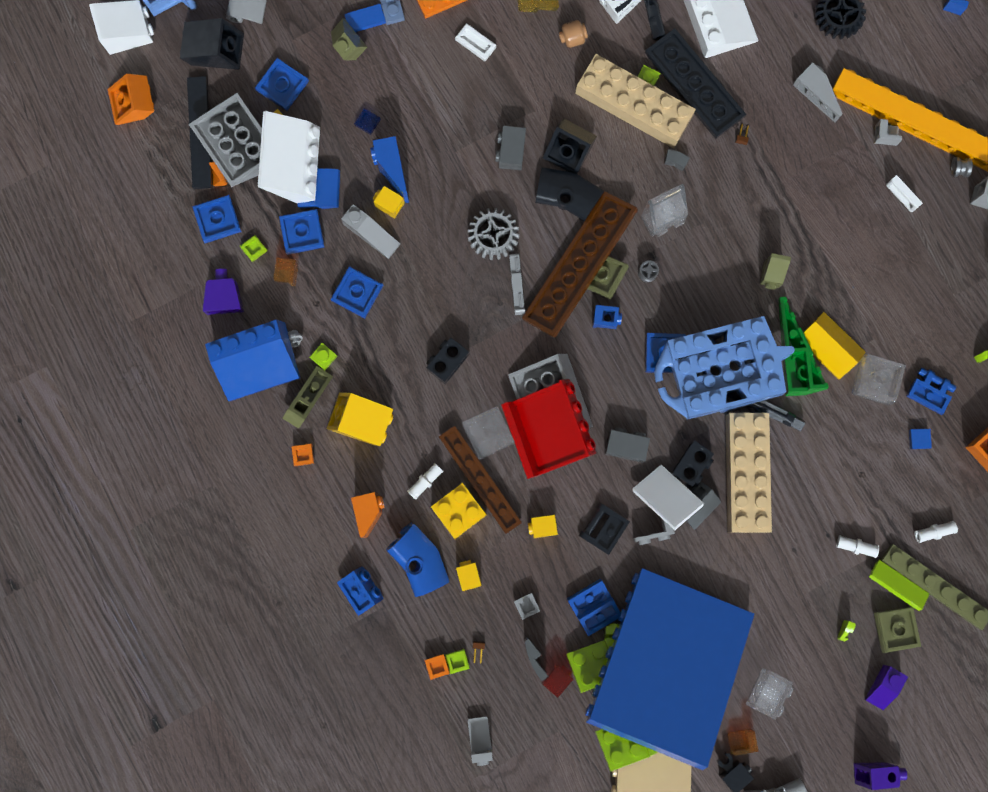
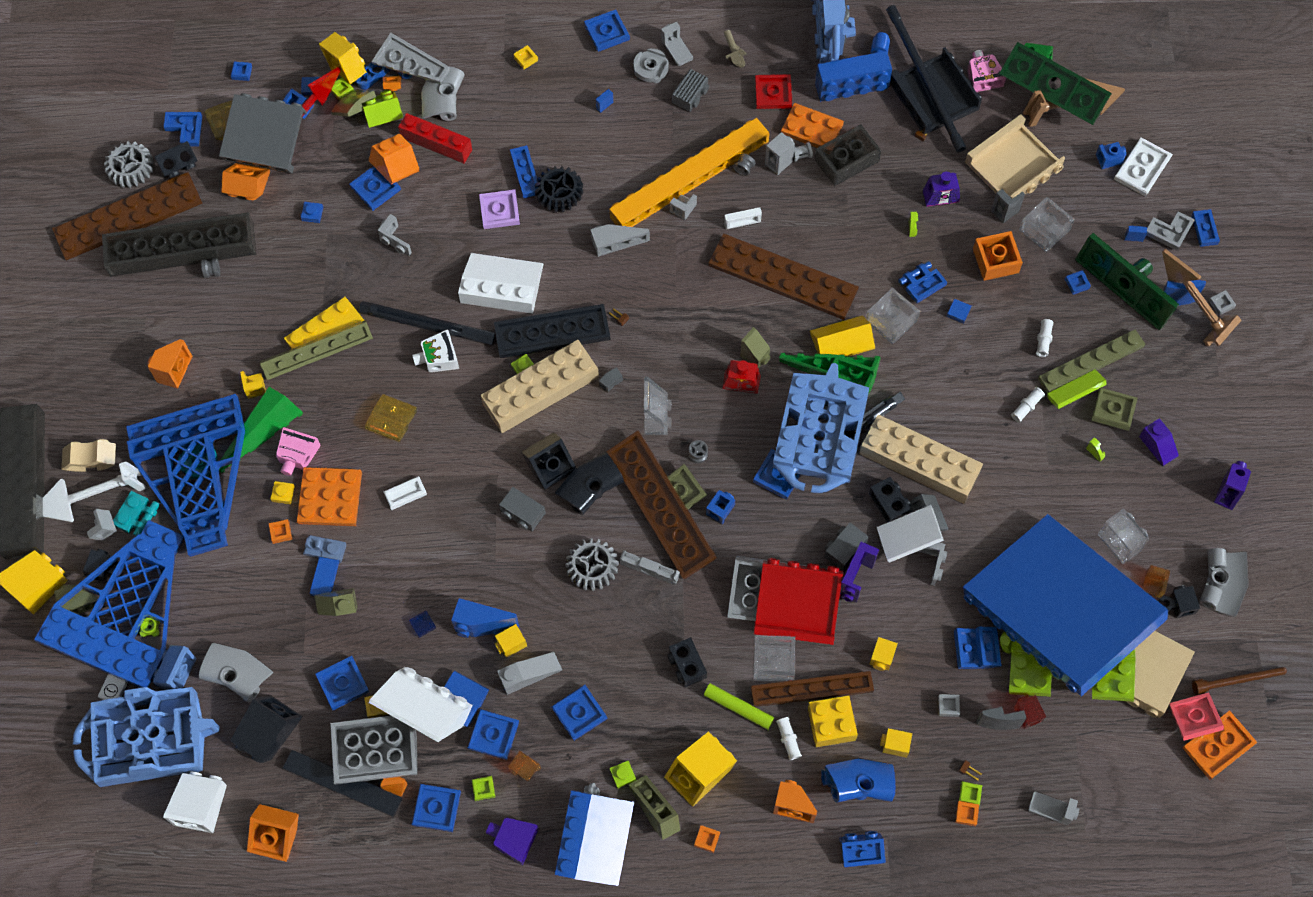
camera: 60 degrees left, 15 degrees down
(432, 424) = (739, 706): none -> lime piece
(573, 33) = (449, 406): medium nougat head -> none
(610, 531) = (916, 600): black plate -> none
(623, 463) = (864, 555): none -> dark purple panel
(741, 272) = (742, 377): none -> red torso
(865, 261) = (783, 276): none -> reddish brown plate

